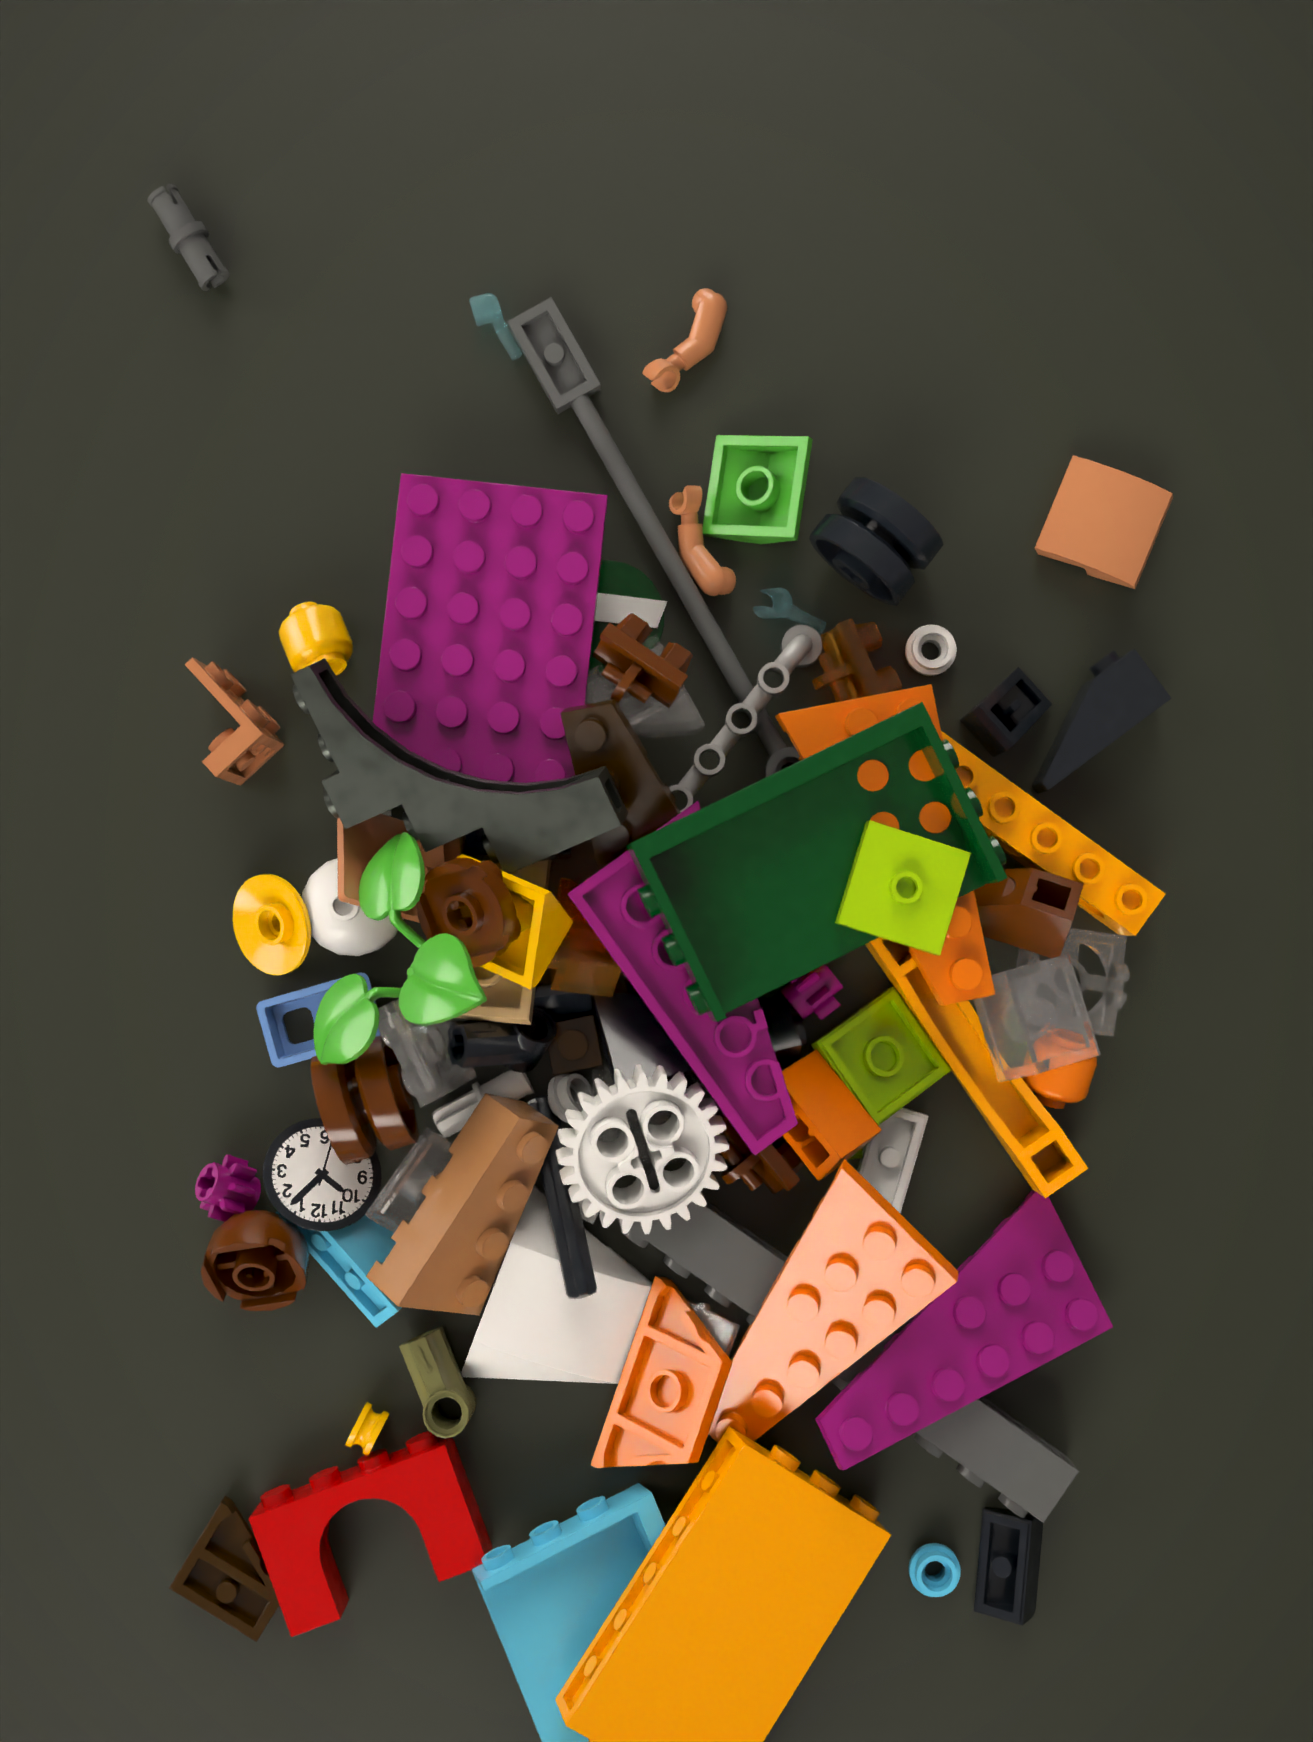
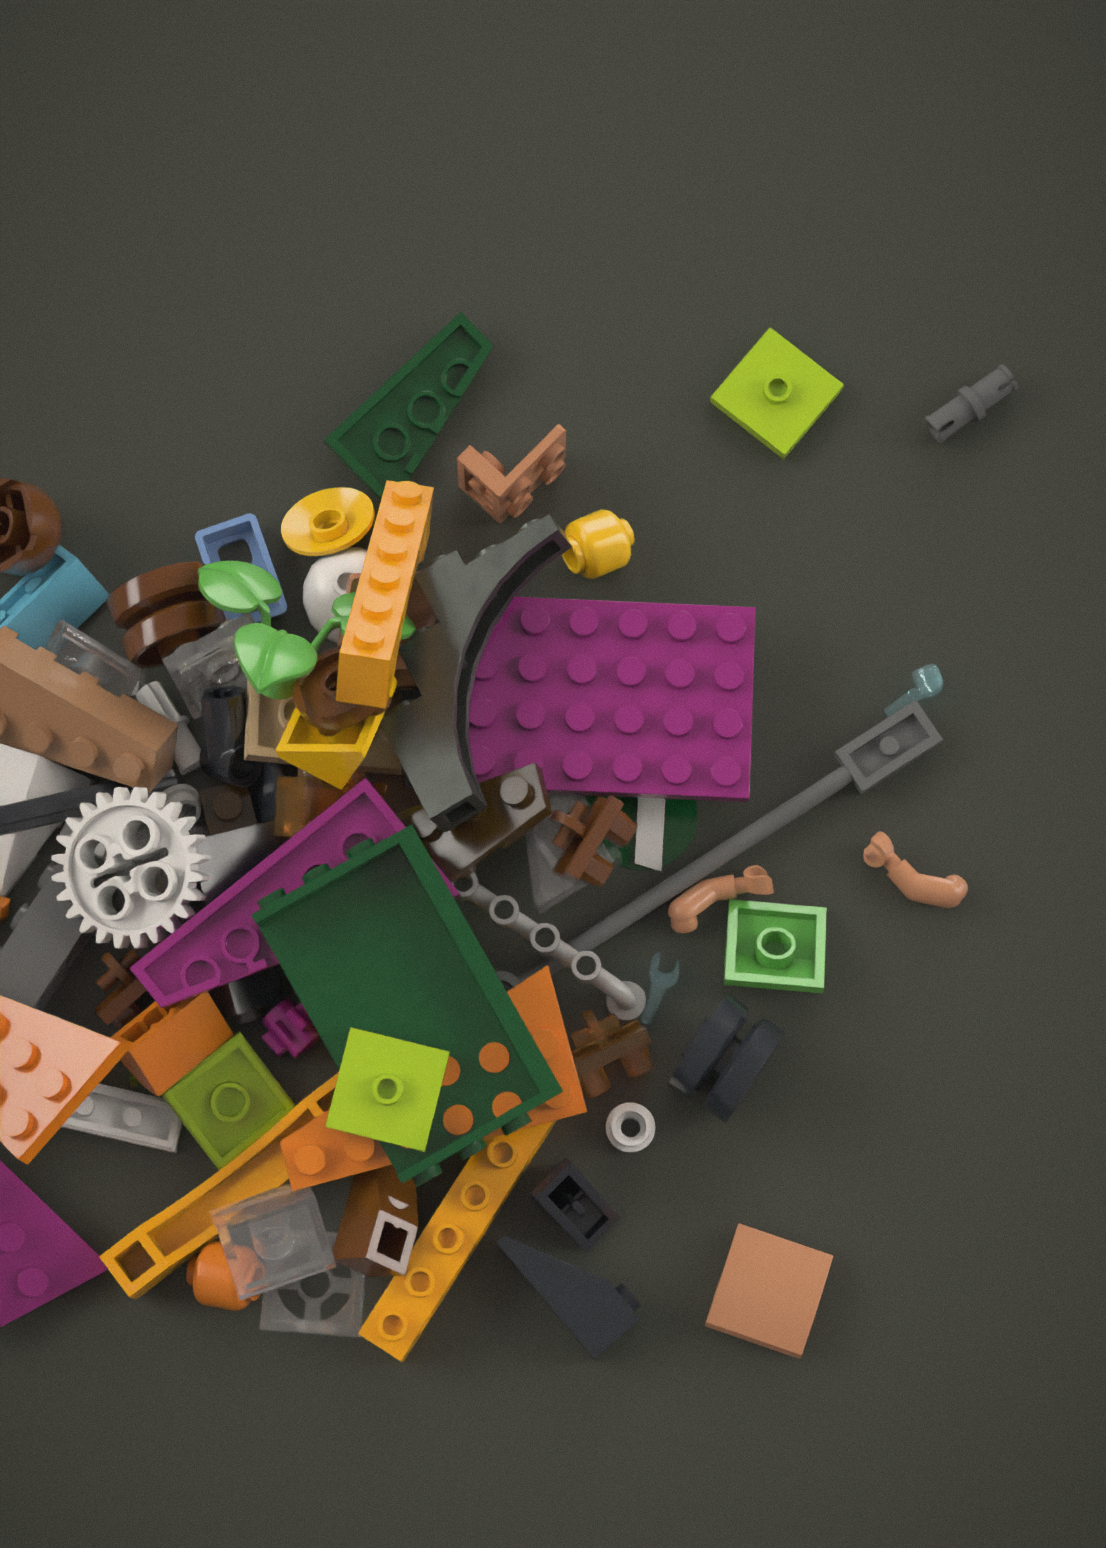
camera: 90 degrees right, 10 degrees down
(161, 442) = (776, 393): none -> lime plate
(164, 841) = (405, 415): none -> dark green wing
(227, 1188) = (80, 499): magenta gear -> none
(311, 1182) = (85, 574): sticker -> none
(369, 861) = (383, 593): none -> light orange arch

